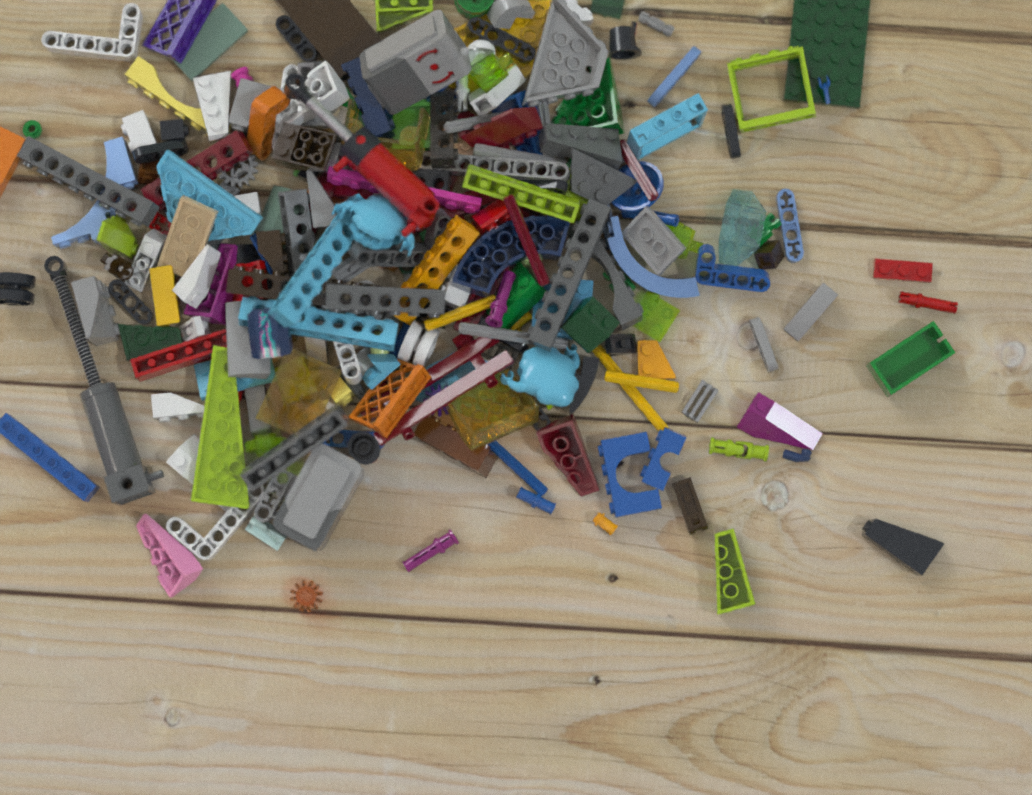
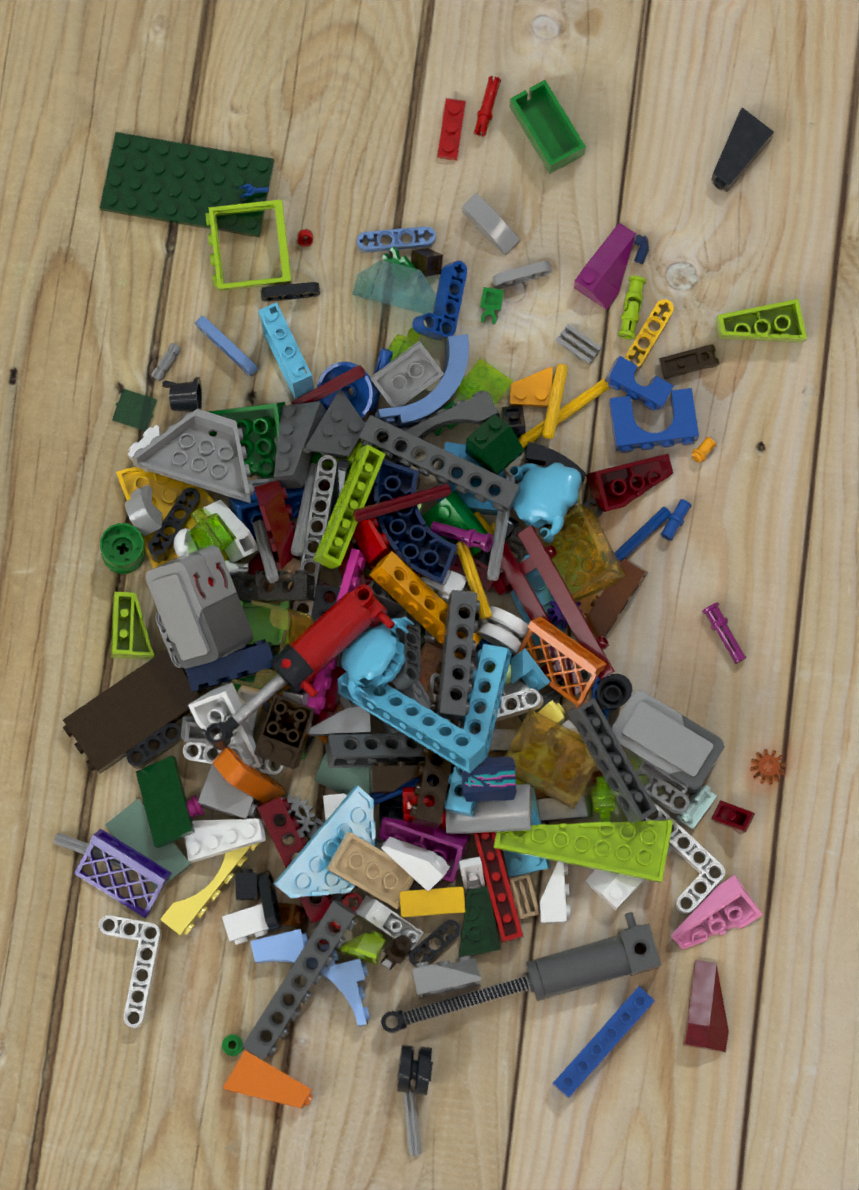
camera: 80 degrees left, 5 degrees down
(75, 550) = (706, 1013): none -> dark red wedge
(161, 385) = (528, 913): none -> tan tile
(243, 52) = (165, 802): none -> dark green tile
(257, 565) = (733, 817): none -> dark red slope
(382, 276) = (429, 662): none -> clear orange brick
(712, 469) = (646, 333): none -> yellow beam
(734, 317) = (491, 301): none -> green plate
(785, 141) = (305, 242): none -> red hinge

